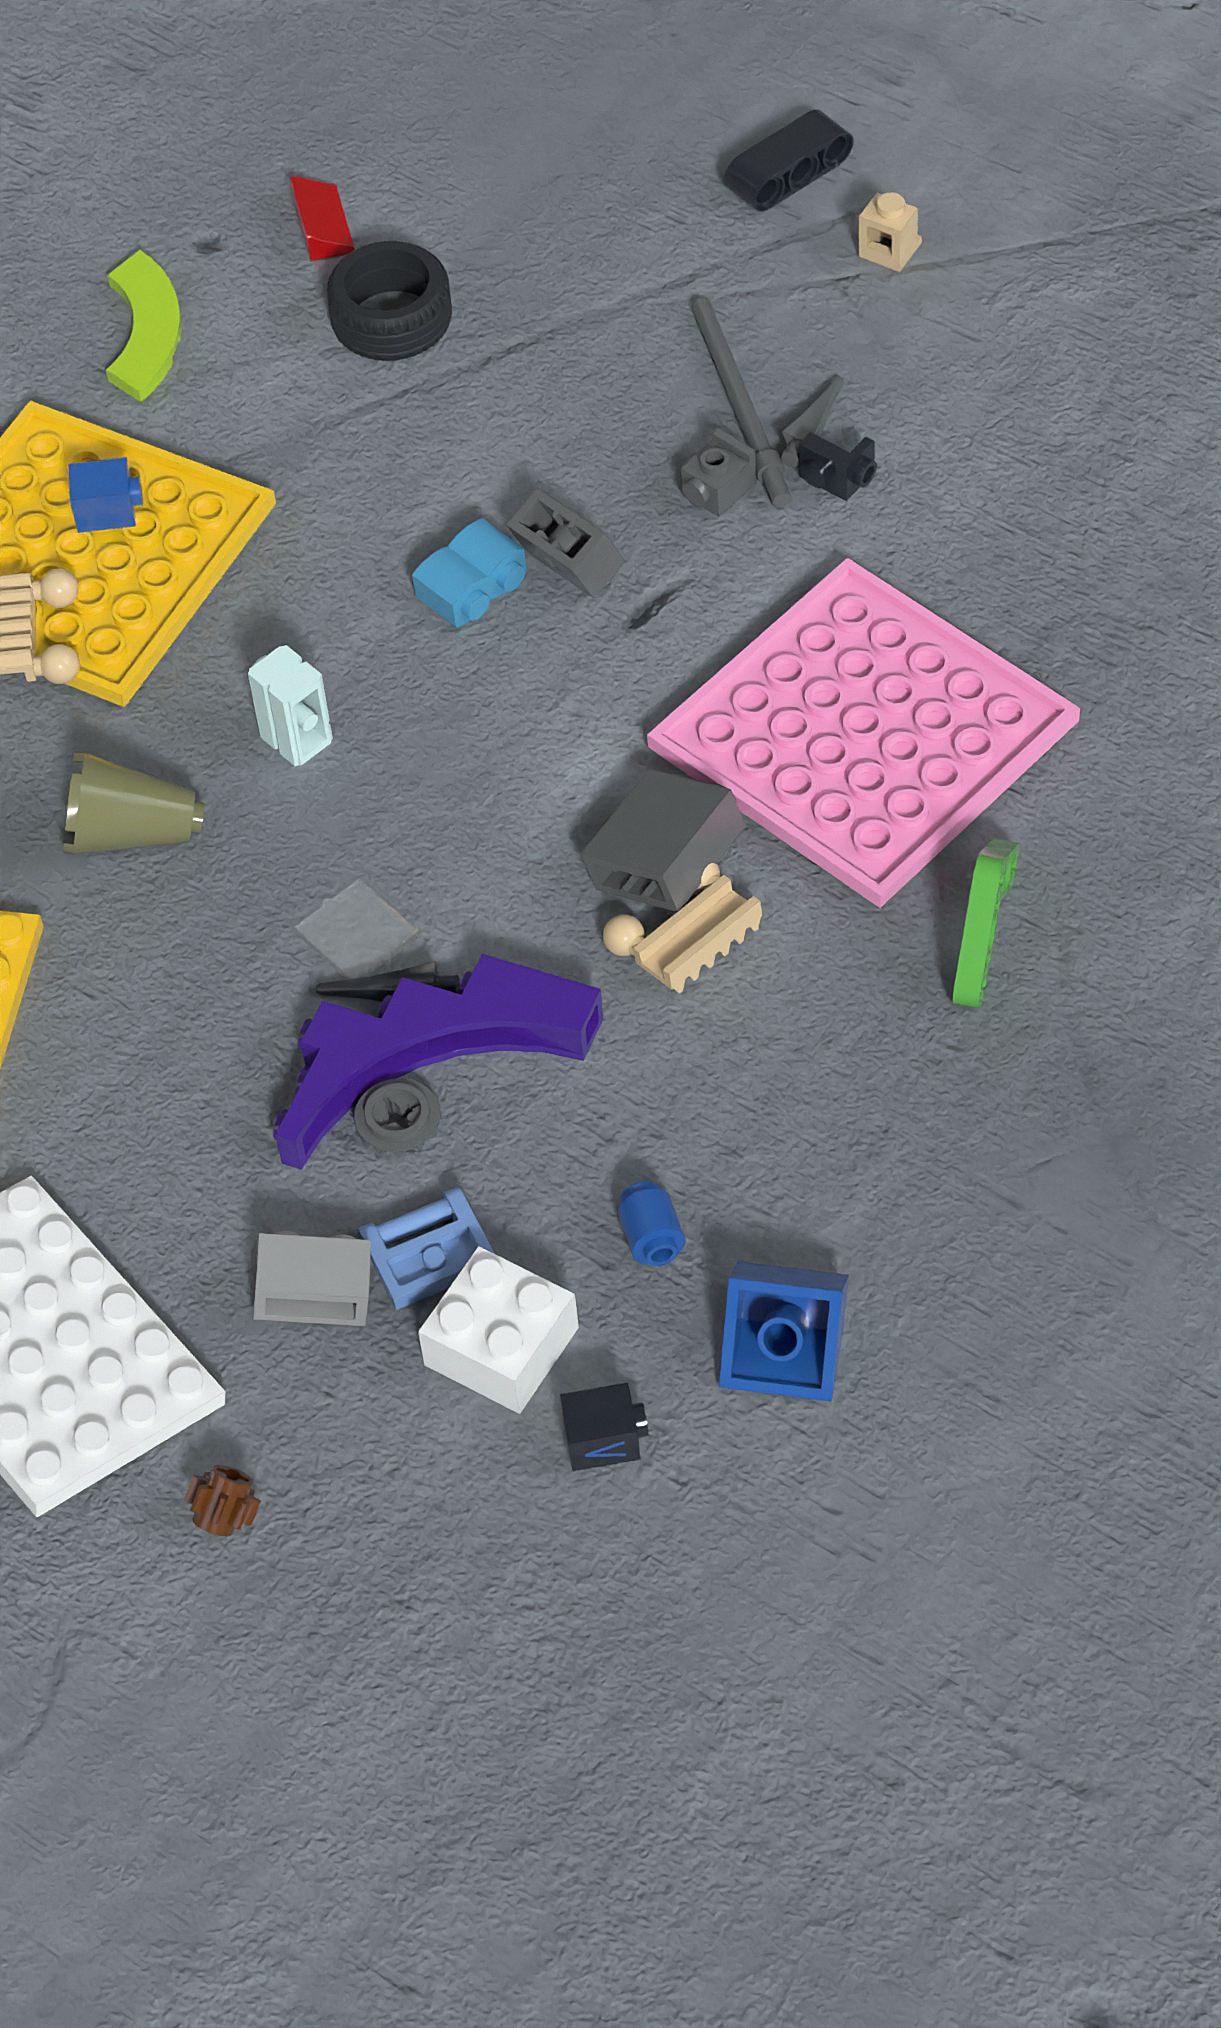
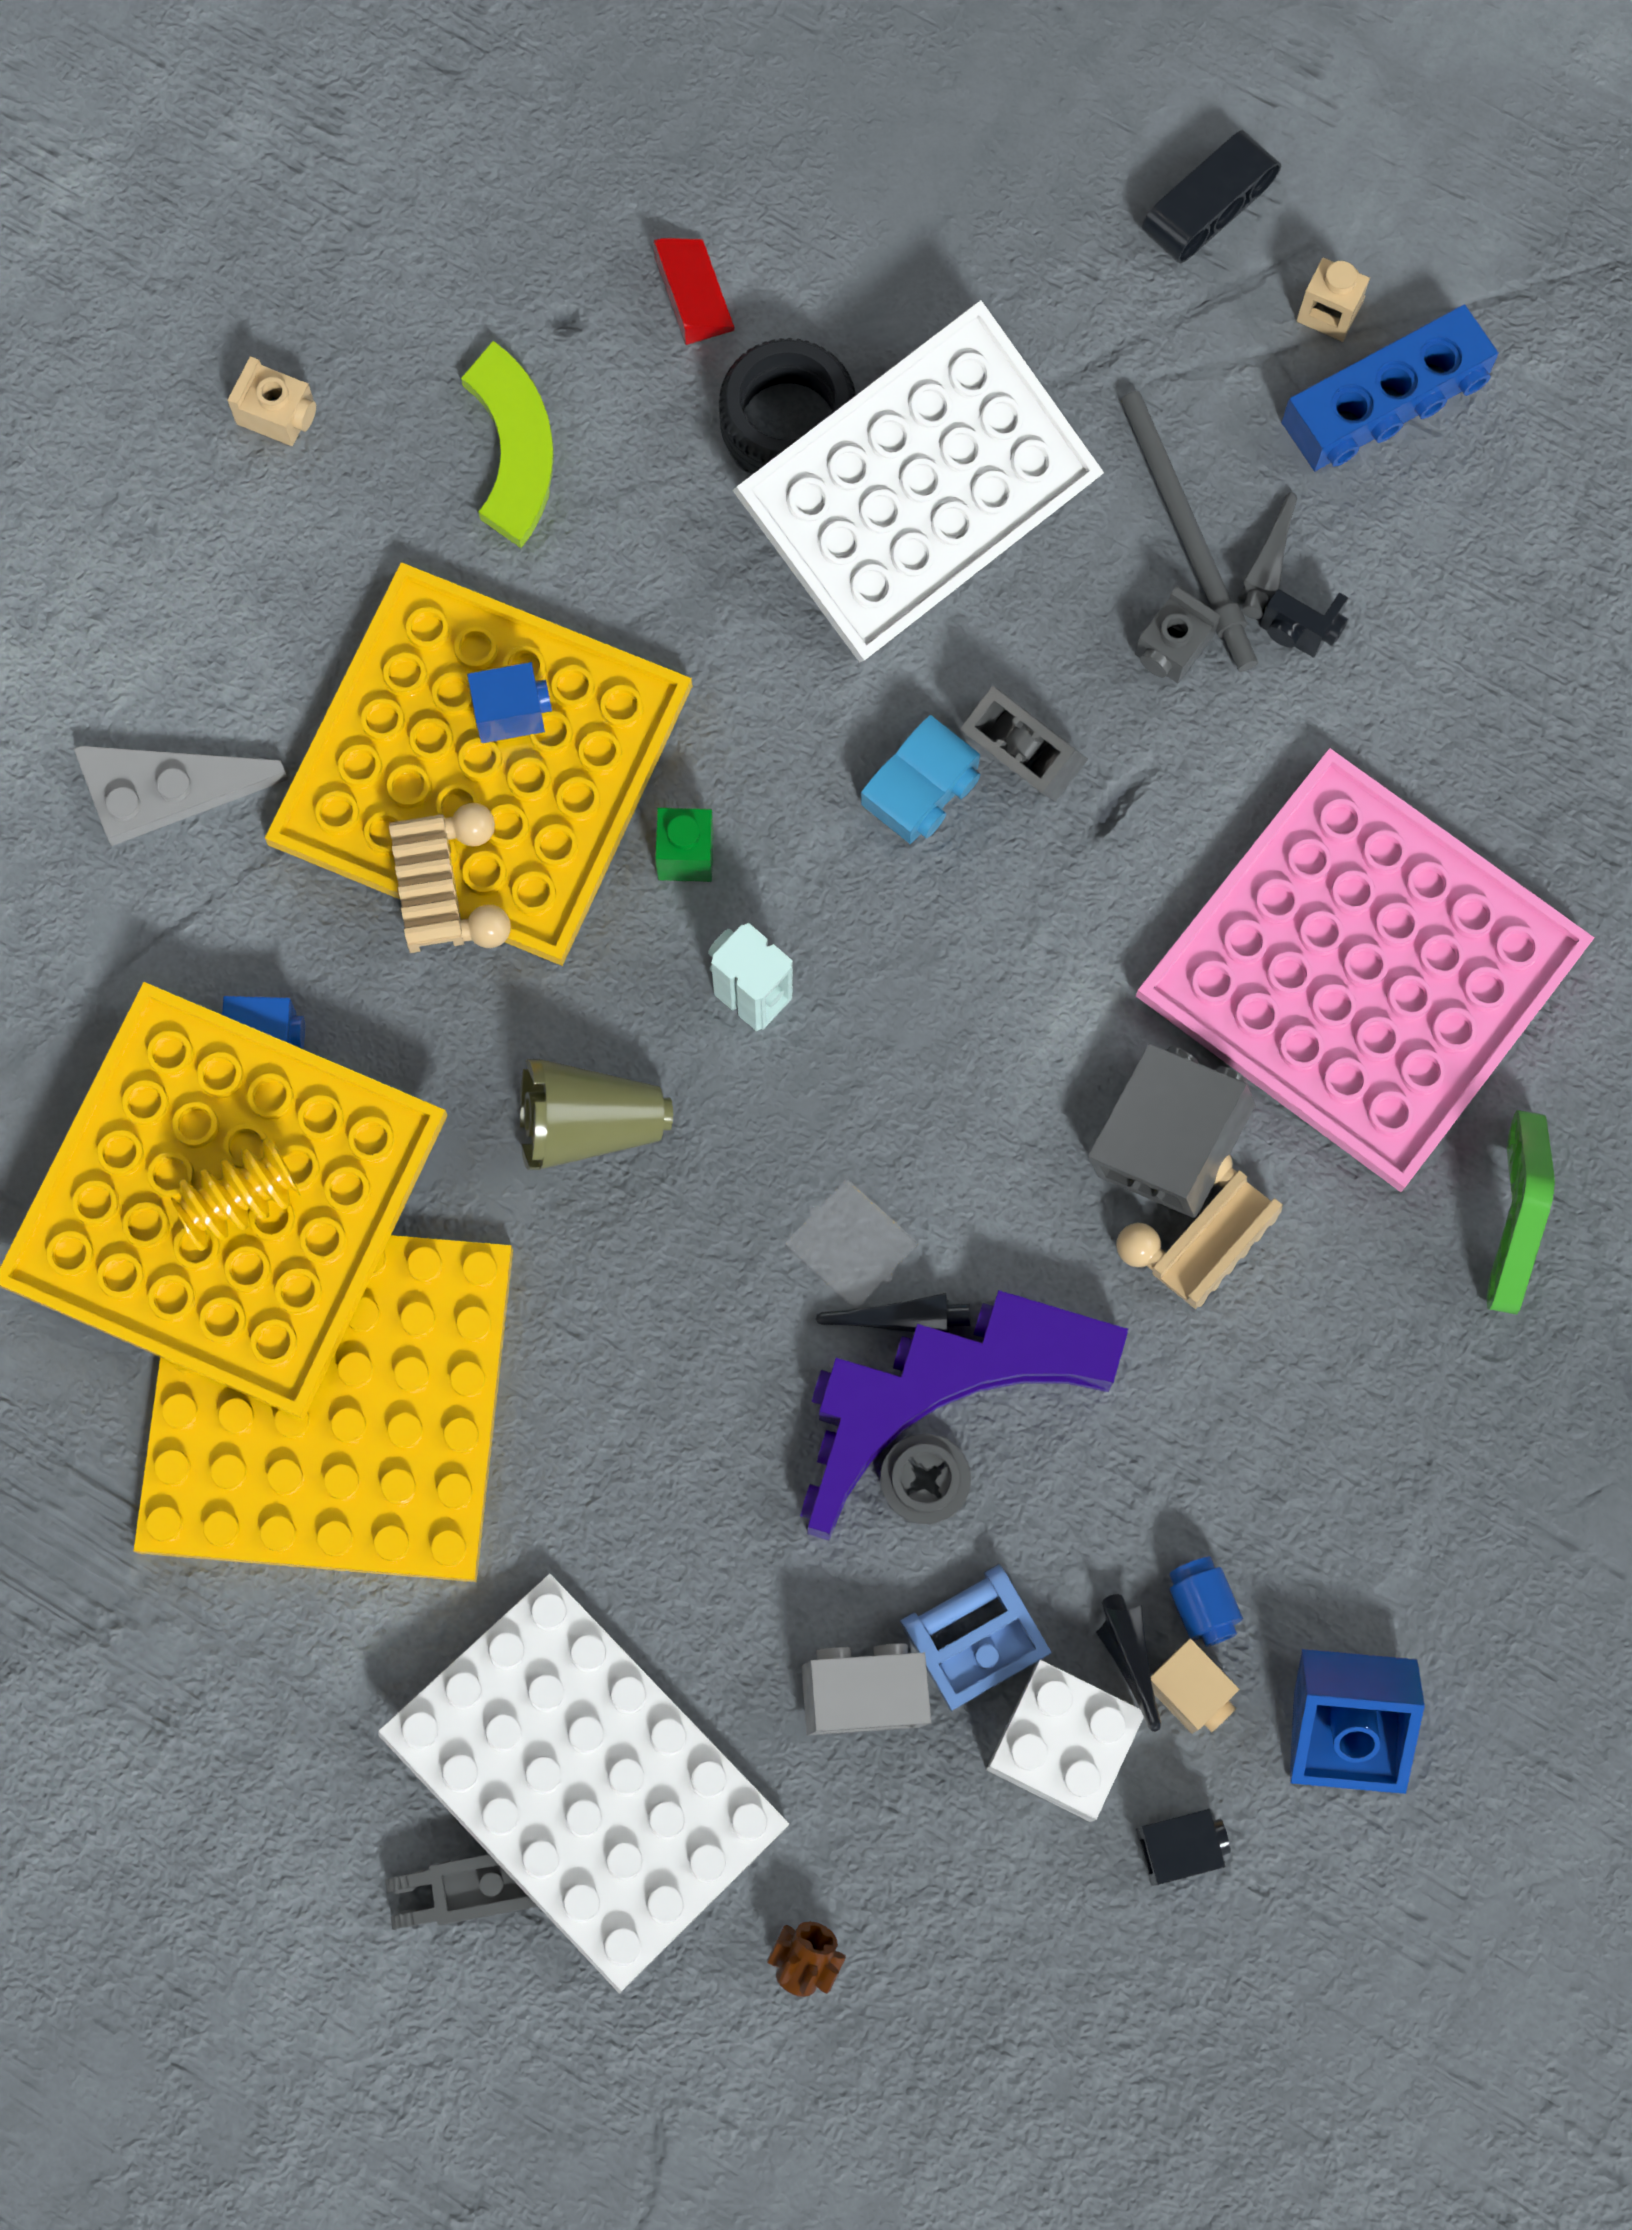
camera: 10 degrees left, 20 degrees up
(247, 612) = (684, 844): none -> green brick
(495, 347) = (918, 481): none -> white plate
(568, 1252) = (1125, 1641): none -> black piece
(628, 1292) = (1194, 1688): none -> tan brick
(933, 298) = (1449, 342): none -> blue brick

